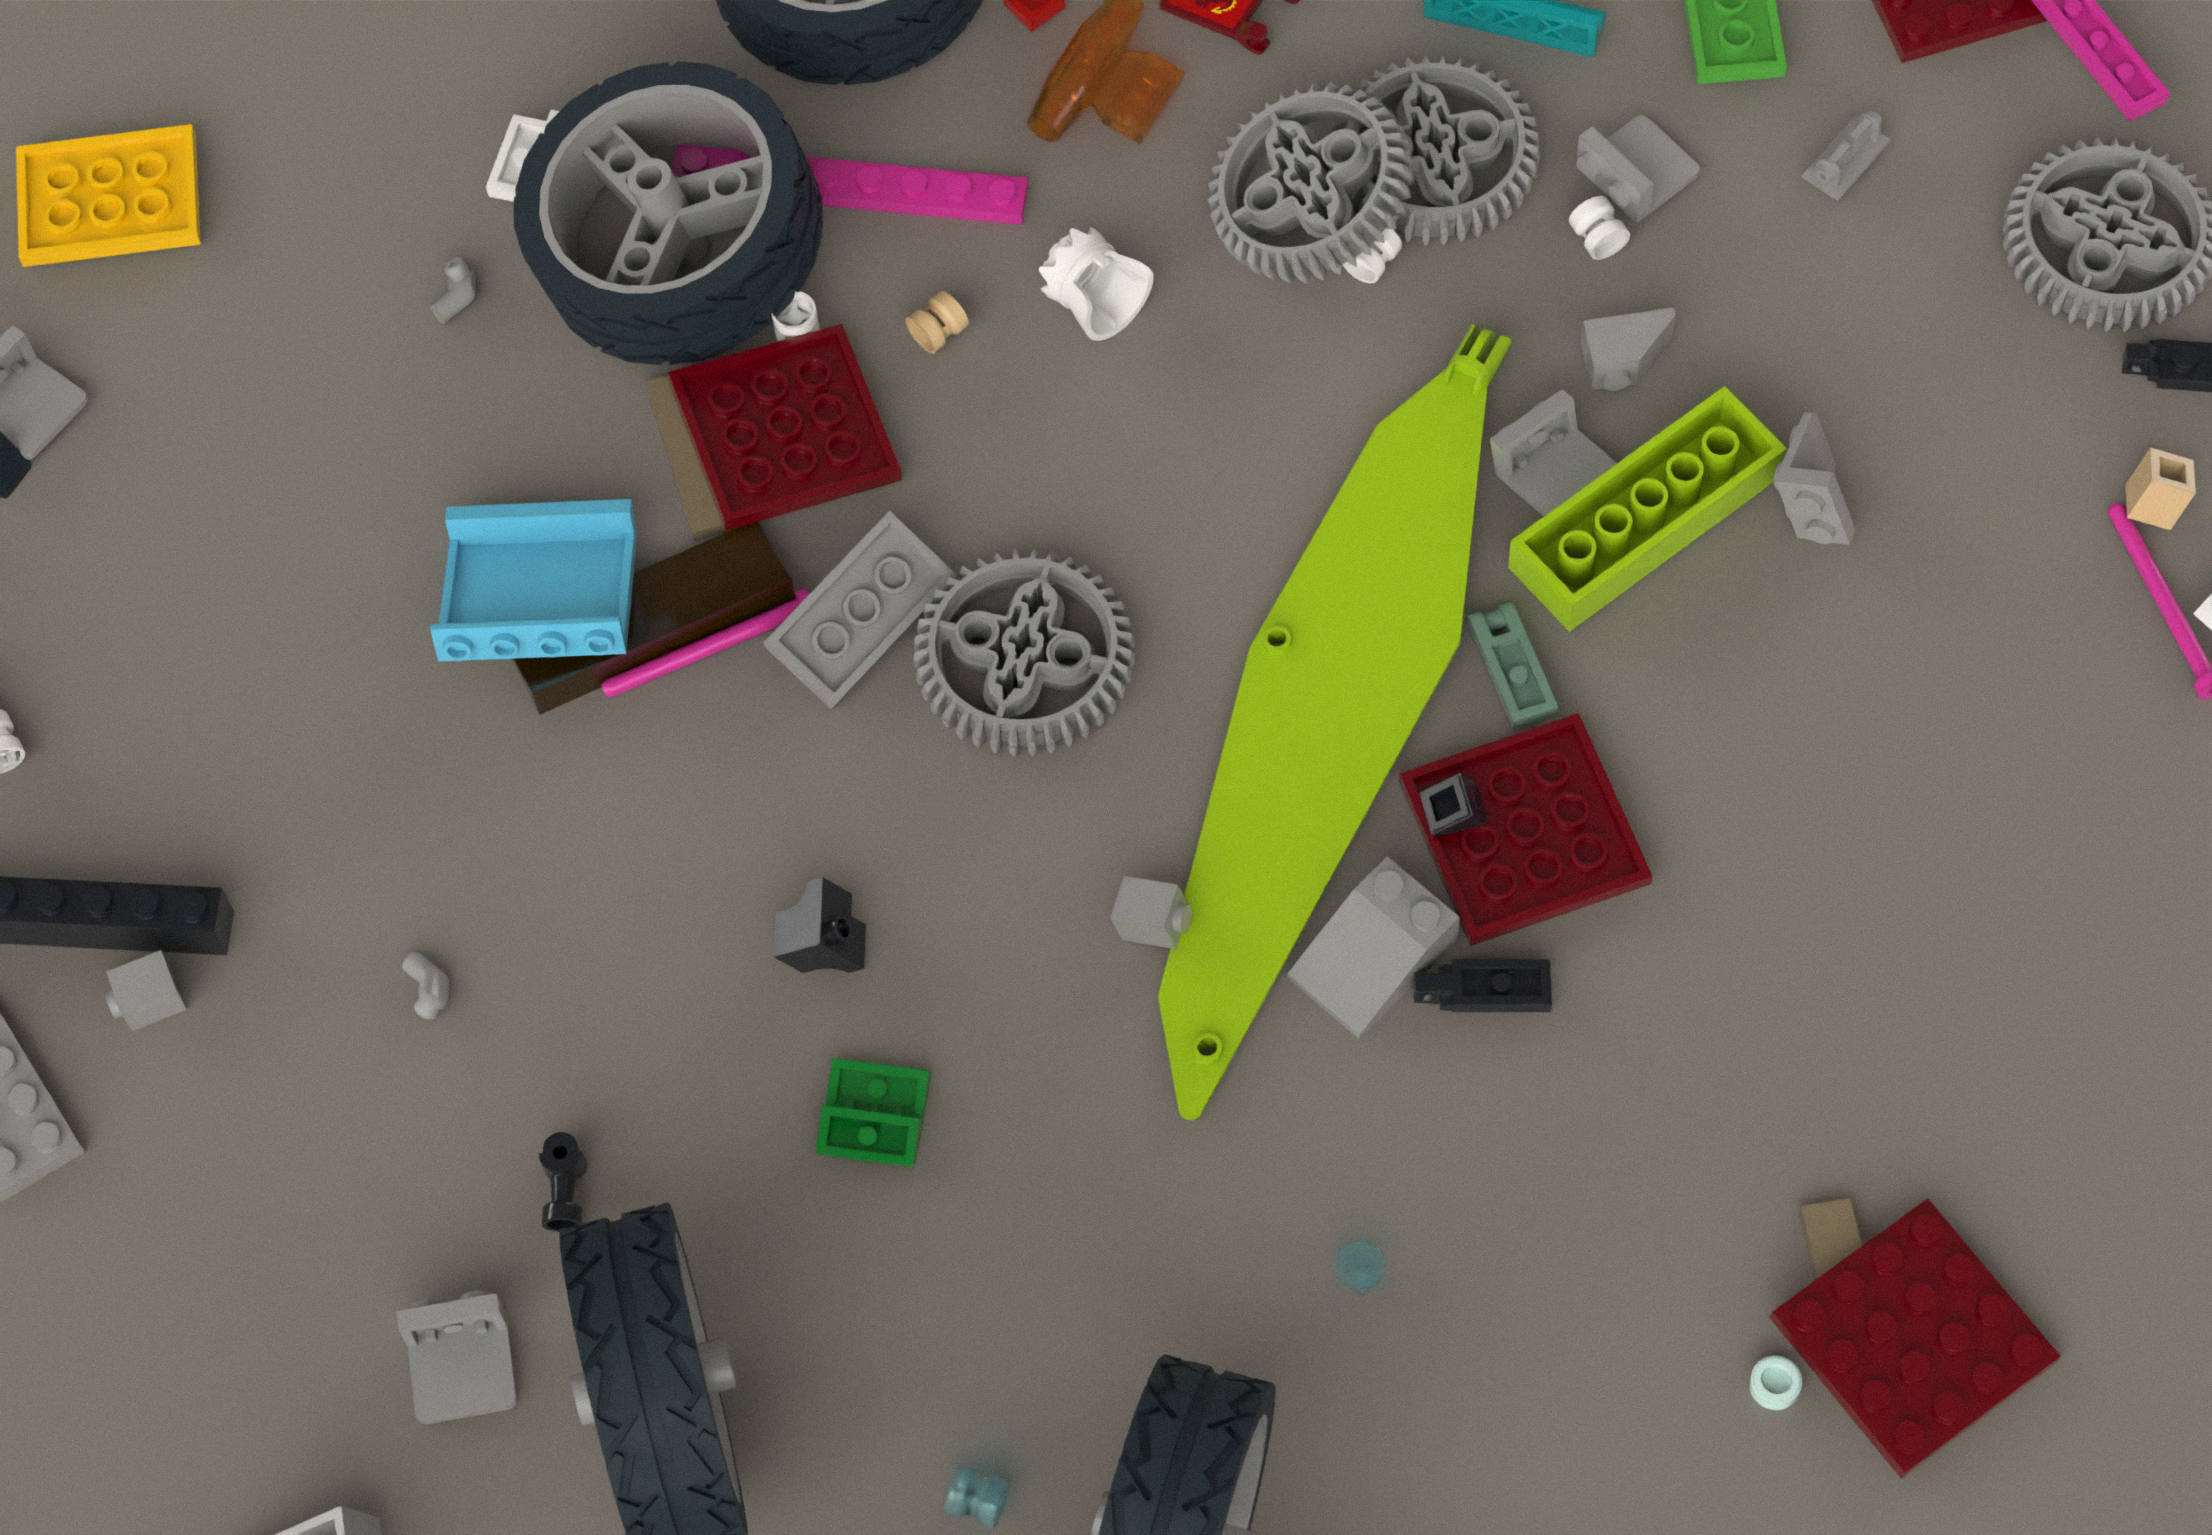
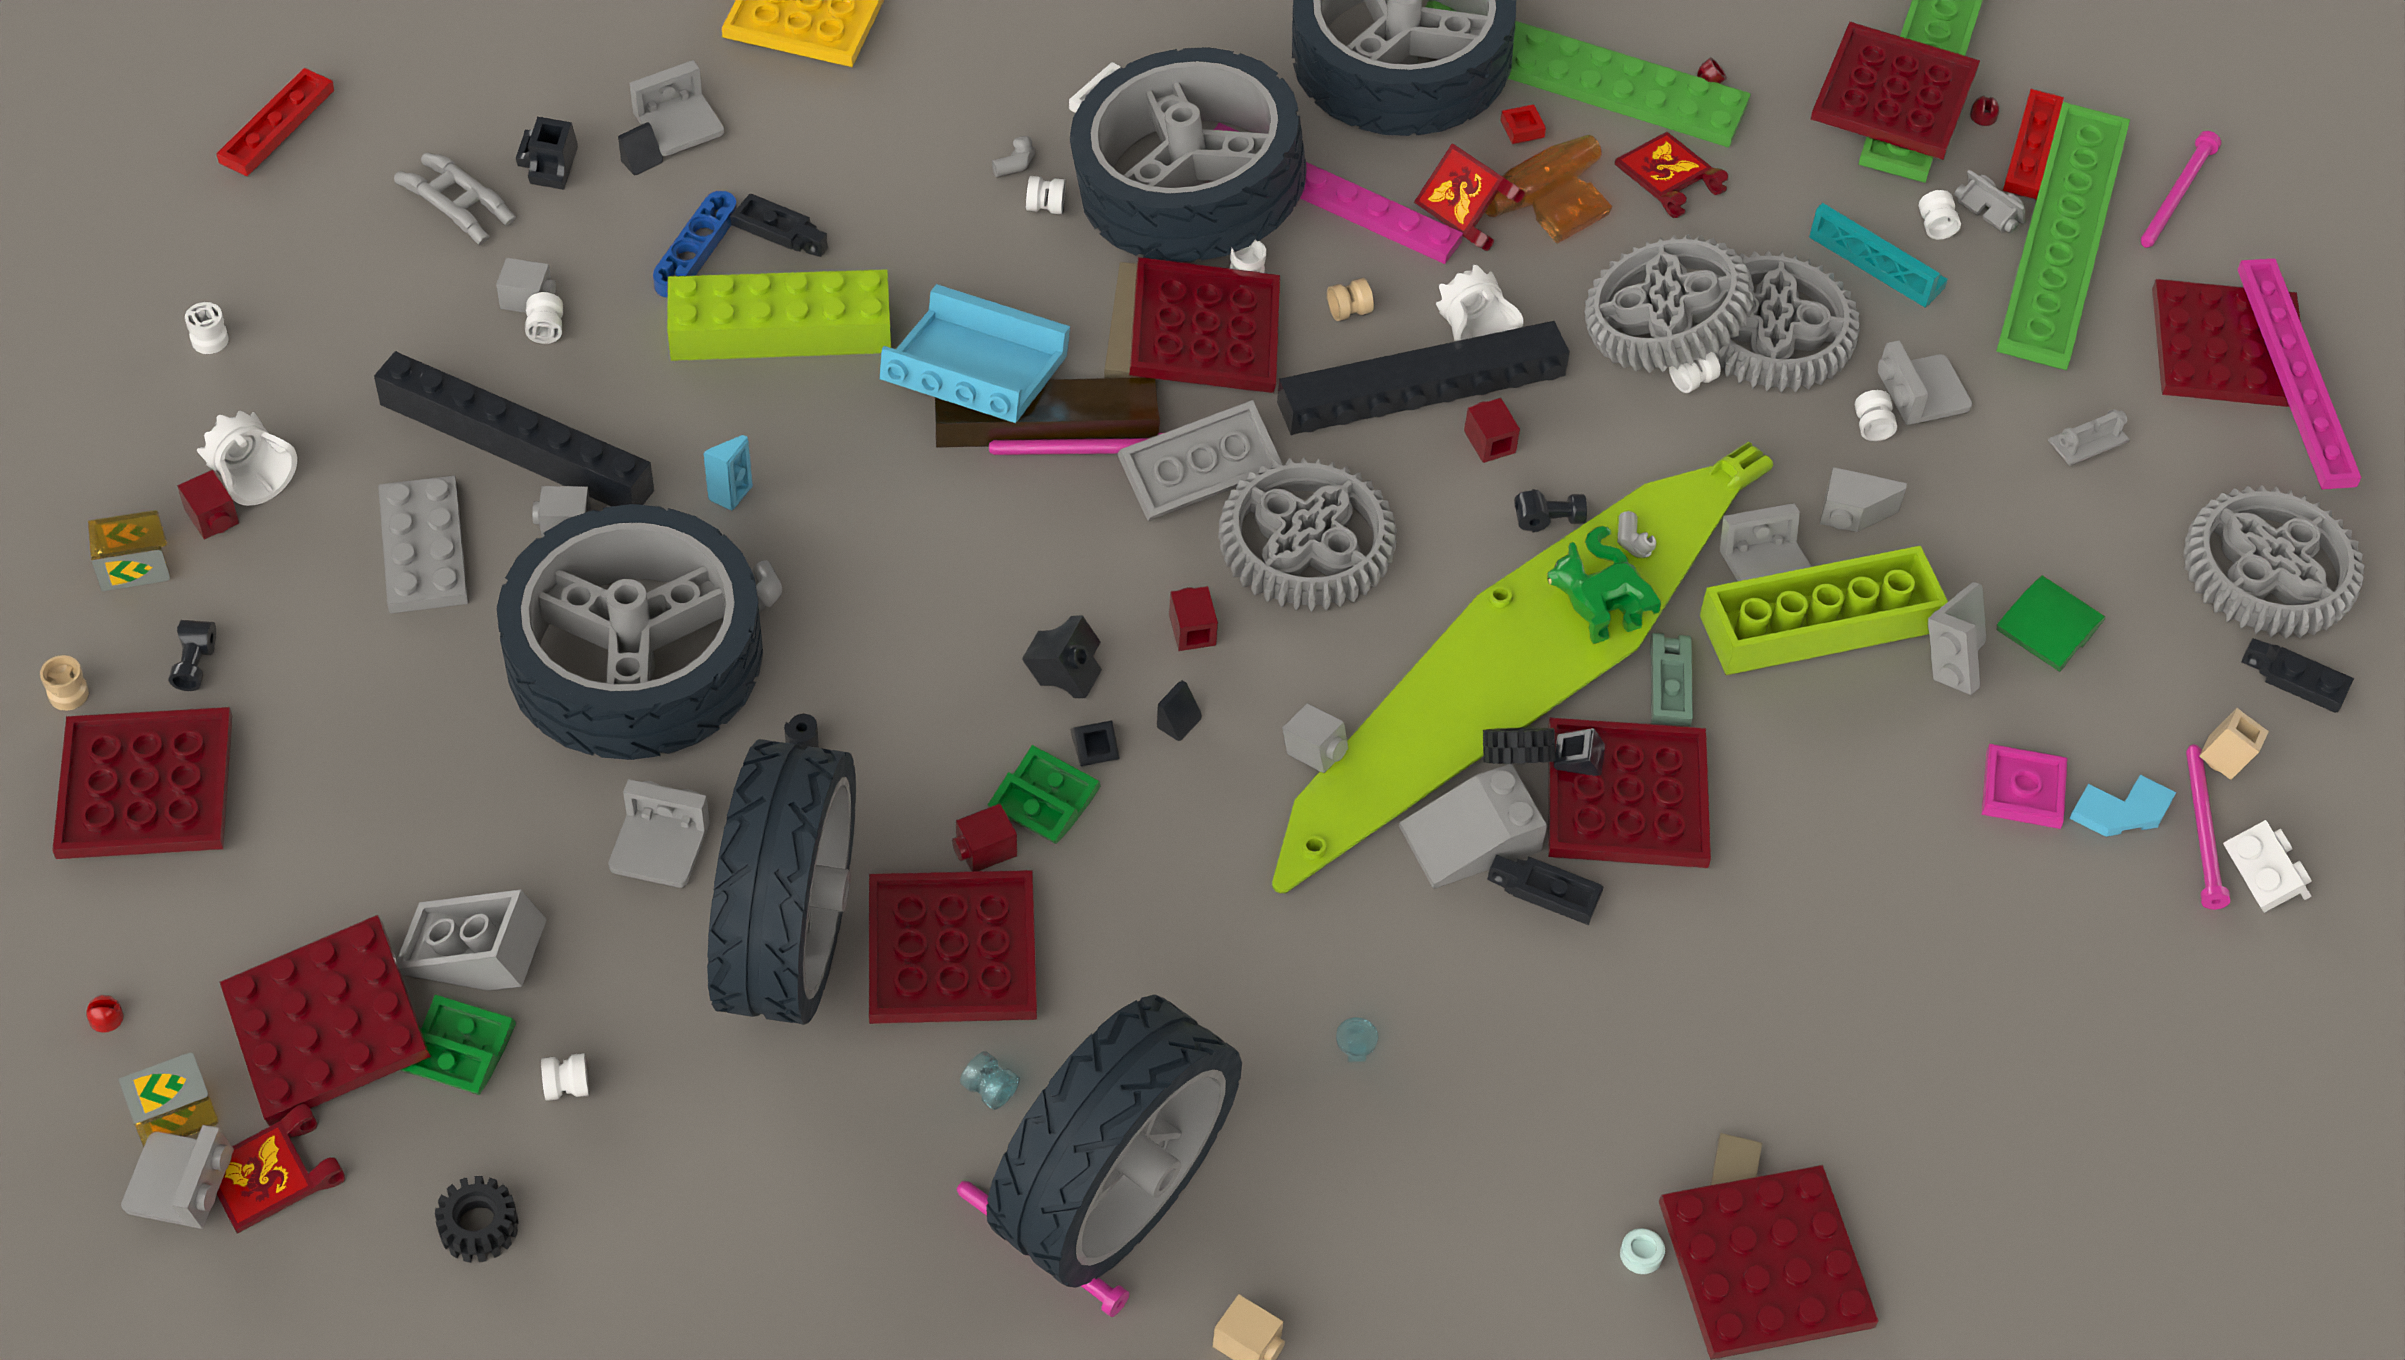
camera: 15 degrees right, 10 degrees down
(126, 564) = (700, 245): none -> blue beam
(188, 1108) = (560, 586): none -> wheel
(216, 499) = (779, 225): none -> black hinge
(275, 621) = (778, 314): none -> lime brick
(319, 860) = (728, 472): none -> medium azure slope
(506, 330) = (1037, 194): none -> white wheel
(833, 1199) = (985, 838): none -> dark red brick
(857, 1349) = (951, 947): none -> dark red plate
(900, 1021) = (1095, 743): none -> black slope
(942, 816) = (1193, 618): none -> dark red brick
(979, 944) = (1178, 712): none -> black slope
(1006, 128) = (1462, 192): none -> flag
(1065, 392) = (1422, 377): none -> black brick
(1174, 427) = (1491, 430): none -> dark red brick
(1270, 513) = (1536, 513): none -> black leg
(1385, 829) = (1519, 745): none -> black tyre
(1400, 510) = (1630, 540): none -> light grey arm
(1400, 585) = (1605, 590): none -> green animal
(1898, 414) = (2050, 622): none -> green slope
(1951, 632) = (2024, 786): none -> dark pink tile
(2060, 629) = (2111, 816): none -> medium azure tile

